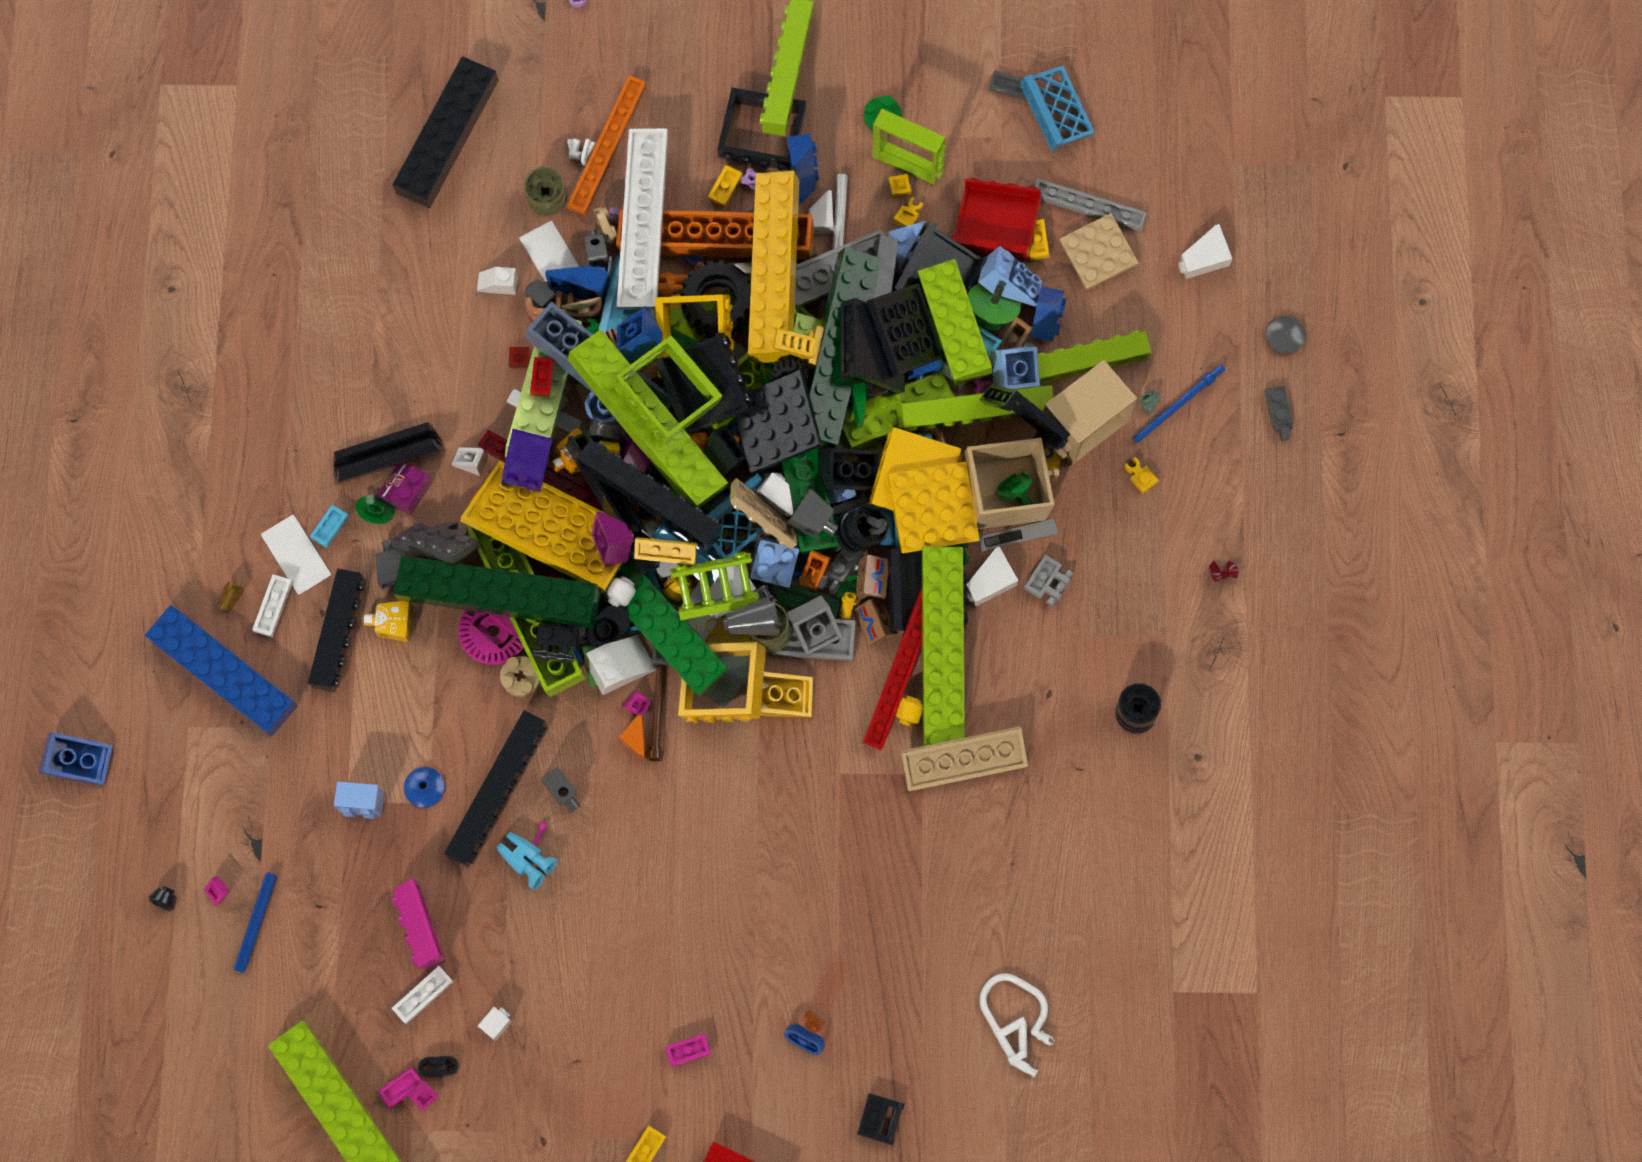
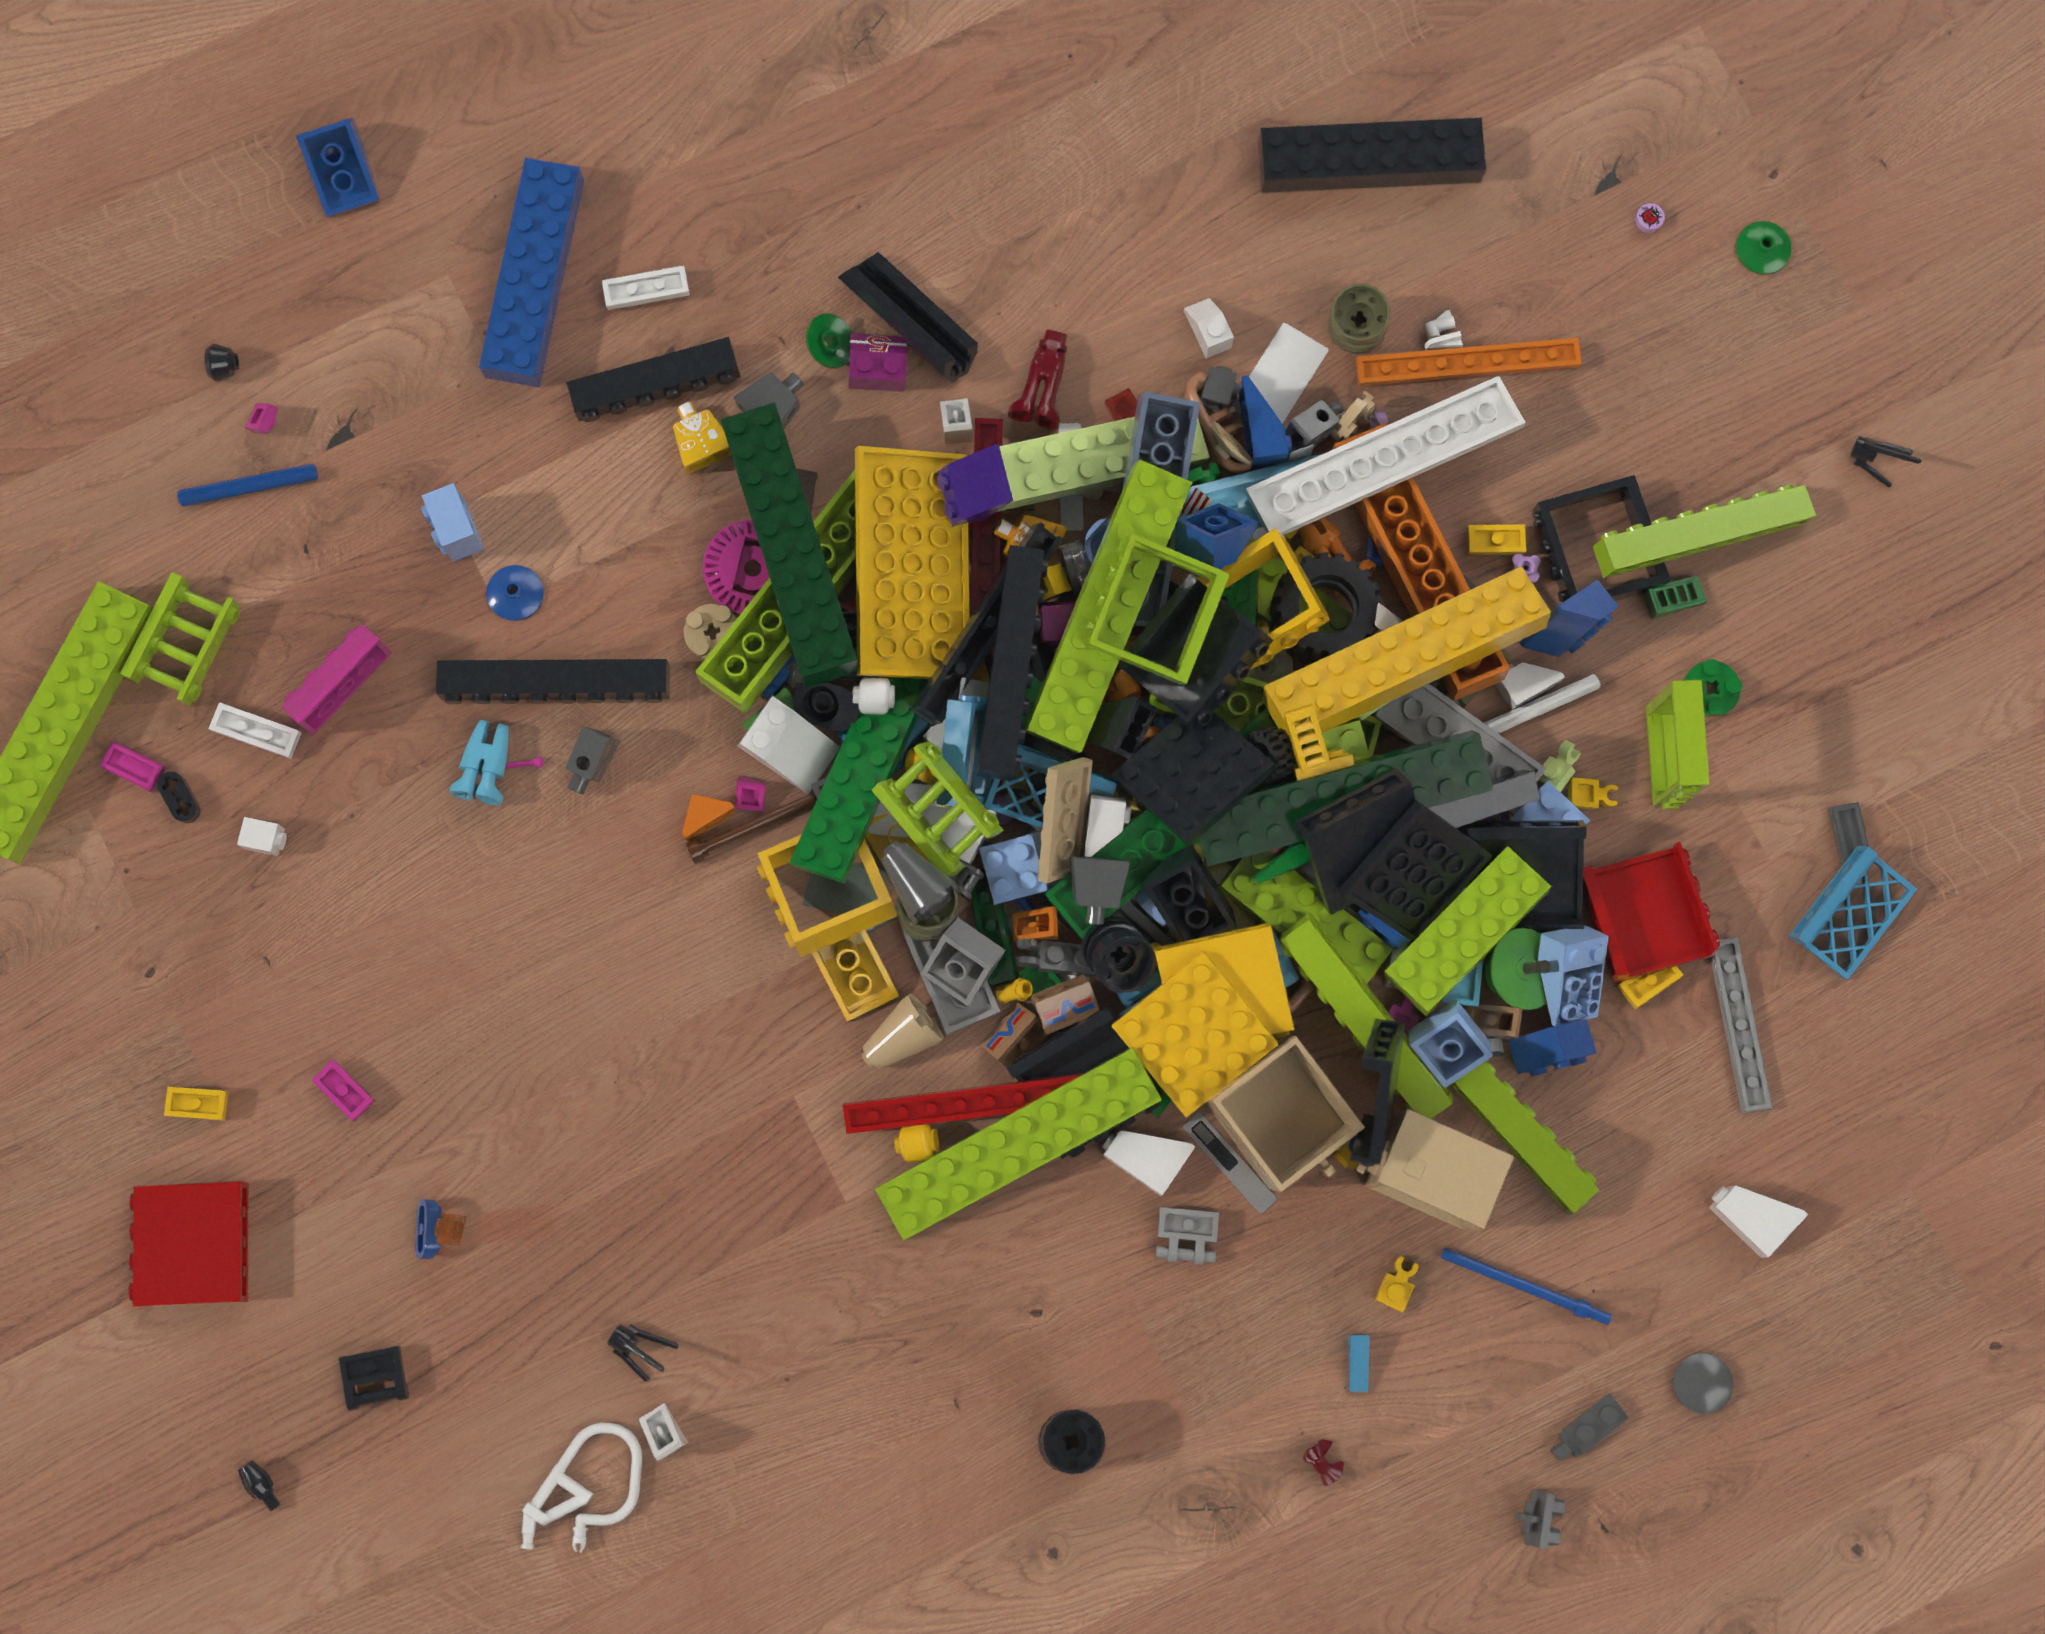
camera: 60 degrees right, 5 degrees up
(230, 595) = (632, 231): pearl gold cone -> none
(295, 554) = (727, 280): white sticker -> none
(326, 1033) = (163, 617): none -> lime fence
(329, 526) = (781, 299): medium azure plate -> none
(423, 1095) = (132, 798): dark pink plate -> none
(440, 542) = (820, 437): flat silver plate -> none
(467, 387) = (1046, 365): none -> dark red piece
(541, 377) = (1098, 445): red plate -> none
(556, 636) = (771, 648): black plate -> none
(611, 539) = (928, 648): magenta slope -> none
(665, 551) = (946, 722): yellow plate -> none
(813, 118) = (1654, 604): none -> green slope
(838, 686) = (902, 1034): none -> tan cone
(877, 525) = (1129, 974): dark grey plate -> none
(884, 222) = (1560, 770): none -> yellowish green plate
(899, 185) = (1624, 762): yellow plate -> none
(938, 949) = (625, 1341): none -> black plant
(964, 758) = (888, 1246): tan plate -> none
(1007, 954) = (662, 1432): none -> white slope
(1015, 487) = (1284, 1126): green tile -> none
(1098, 251) = (1679, 1071): tan plate -> none
(1149, 401) = (1507, 1244): sand green plate -> none
(1174, 521) = (1358, 1362): none -> dark azure piece
(1318, 466) = (1538, 1518): none -> dark grey hips

